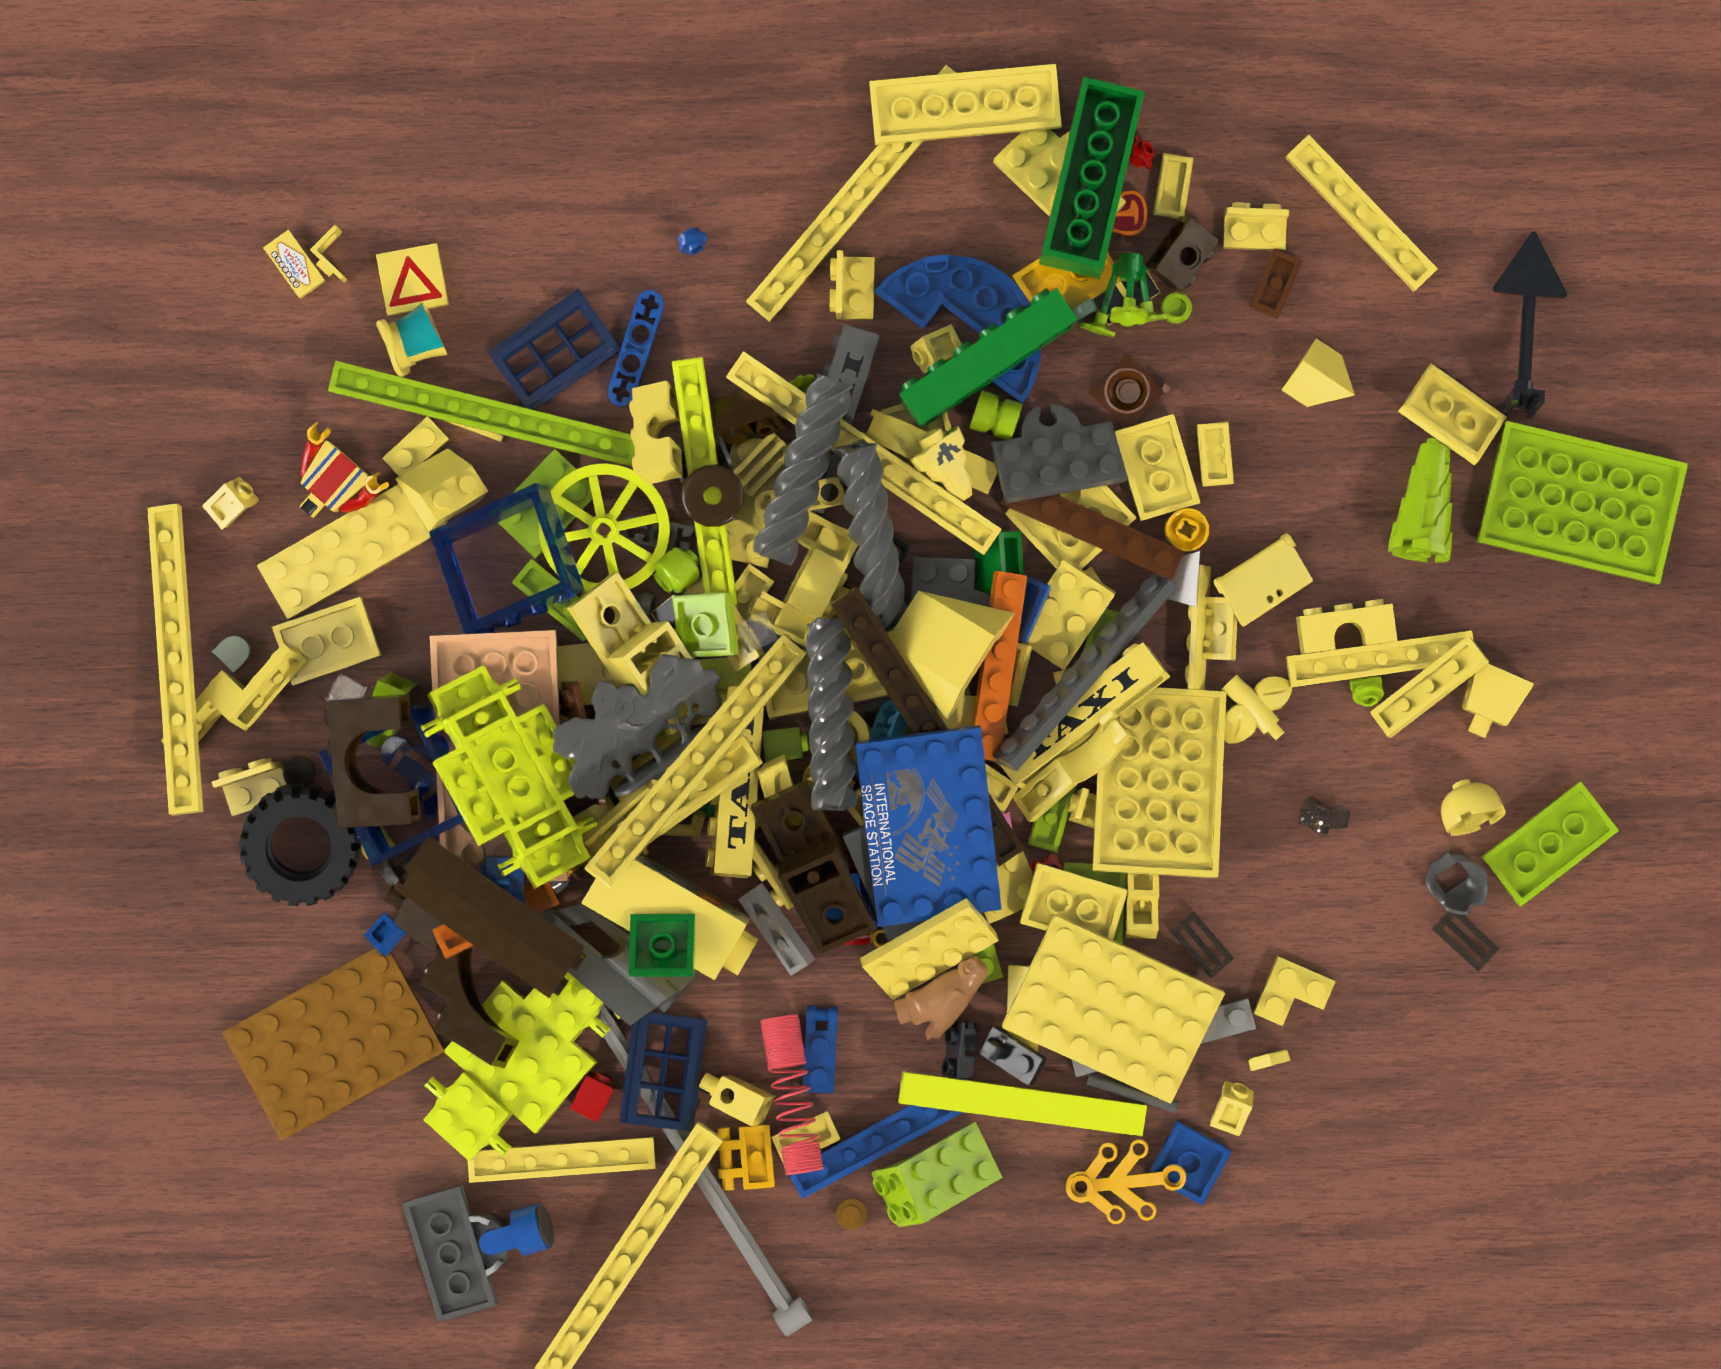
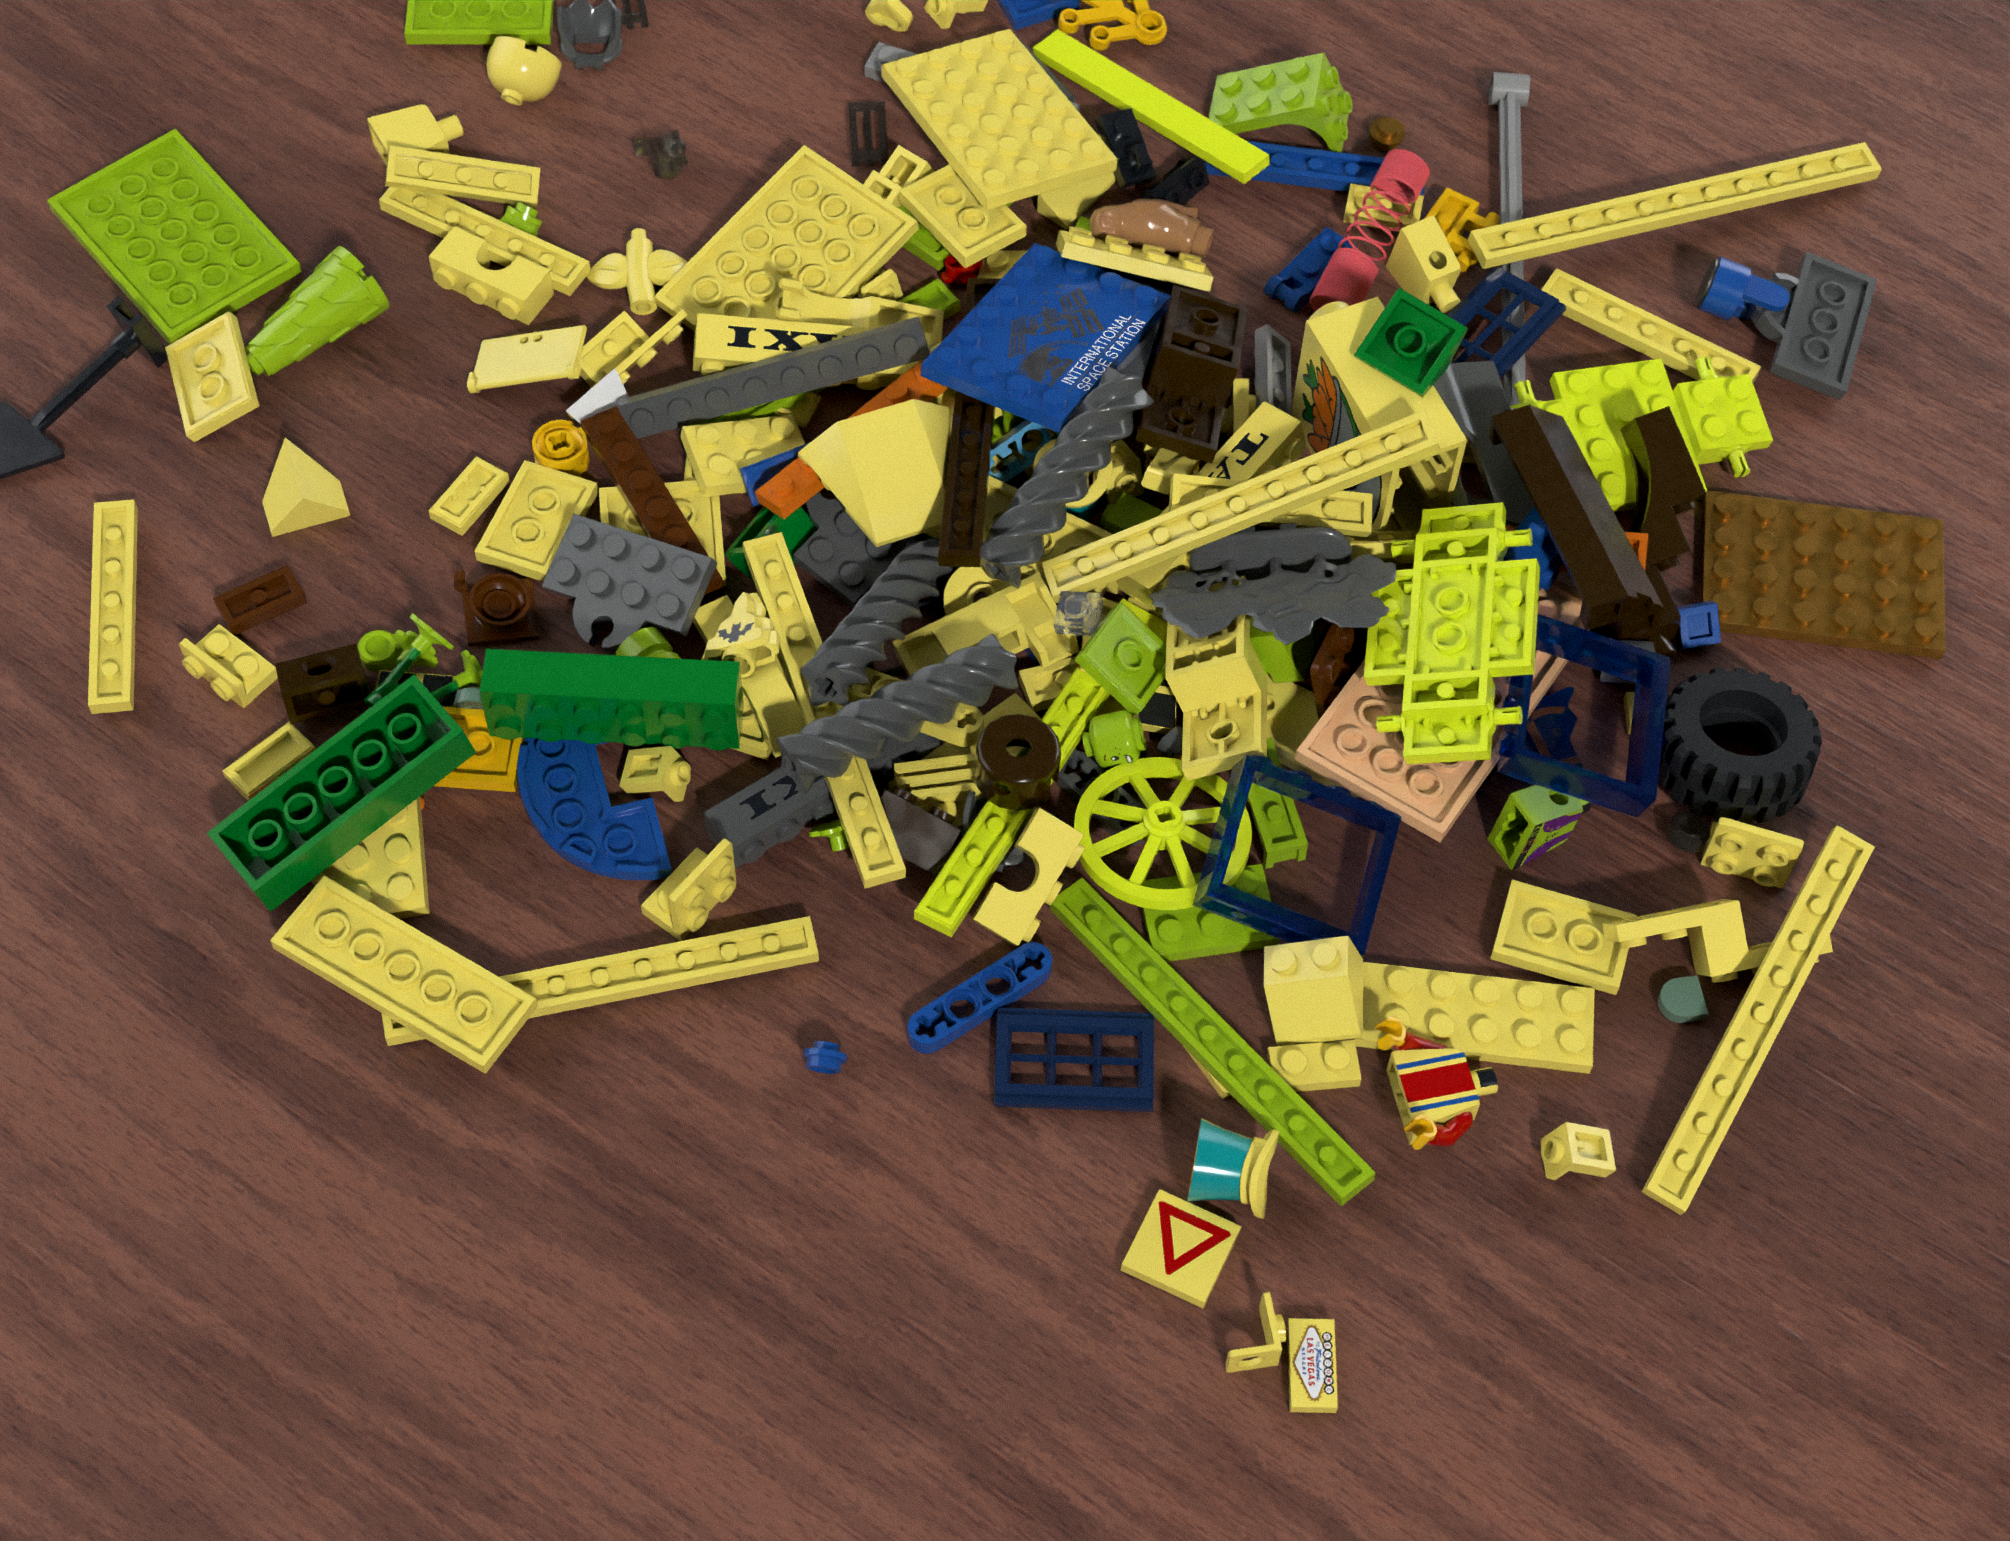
camera: 145 degrees left, 30 degrees down
(346, 688) = (1577, 875): clear tile -> none
(356, 800) = (1641, 705): dark brown arch -> none
(593, 1095) = (1575, 352): red brick -> none
(1287, 983) = (819, 61): light yellow plate -> none

